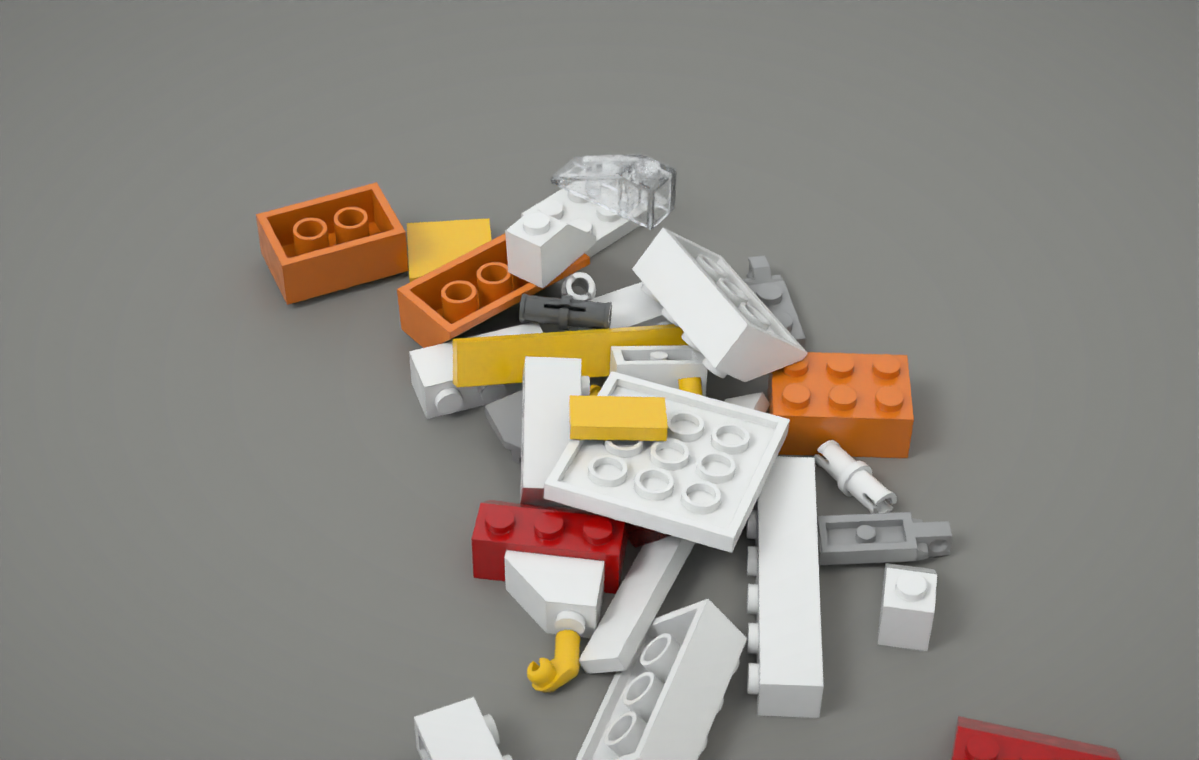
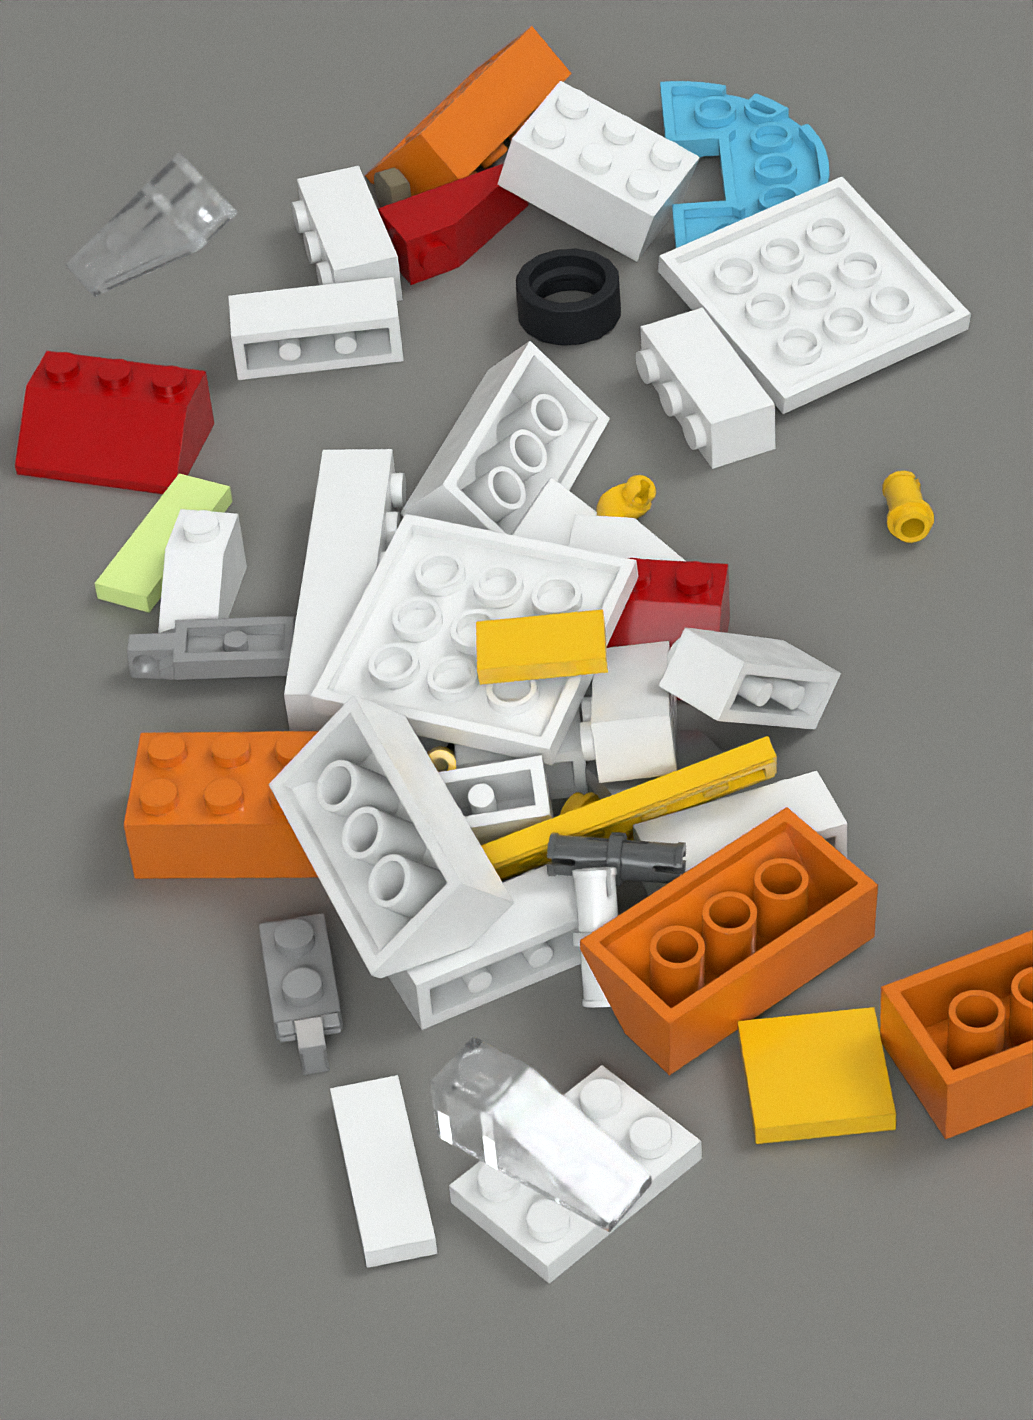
camera: 175 degrees left, 0 degrees up
(313, 639) = (908, 513): none -> yellow pin
(463, 432) = (748, 679): none -> white brick
(544, 247) = (642, 912): white slope -> none
(707, 213) = (383, 1171): none -> white tile
(854, 478) = (219, 705): white pin -> none
(951, 657) = (137, 570): none -> yellowish green tile

